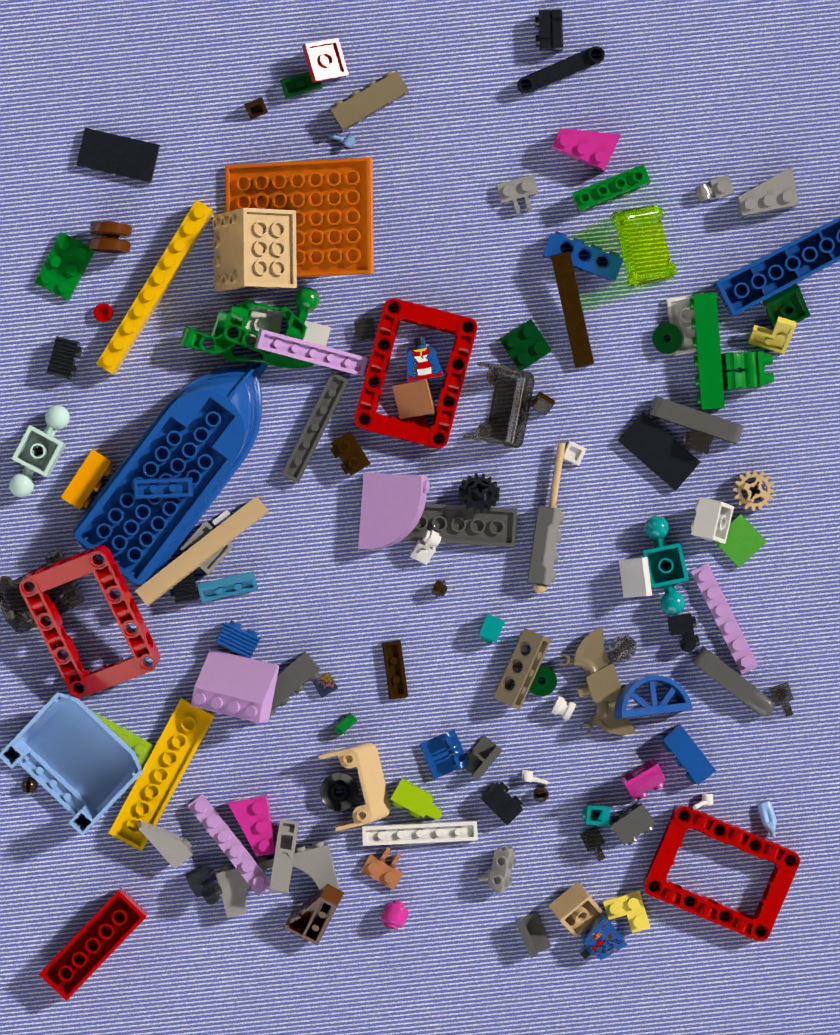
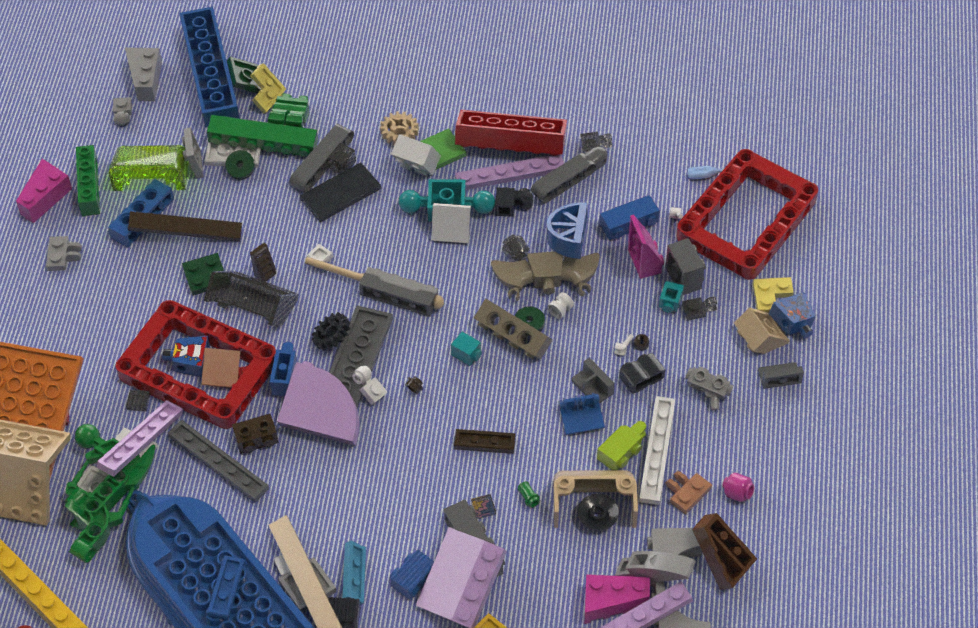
camera: 70 degrees left, 35 degrees down
(424, 461) = (282, 369): none -> blue brick
(661, 289) = (192, 153): none -> light grey plate
(767, 611) = (511, 132): none -> red brick

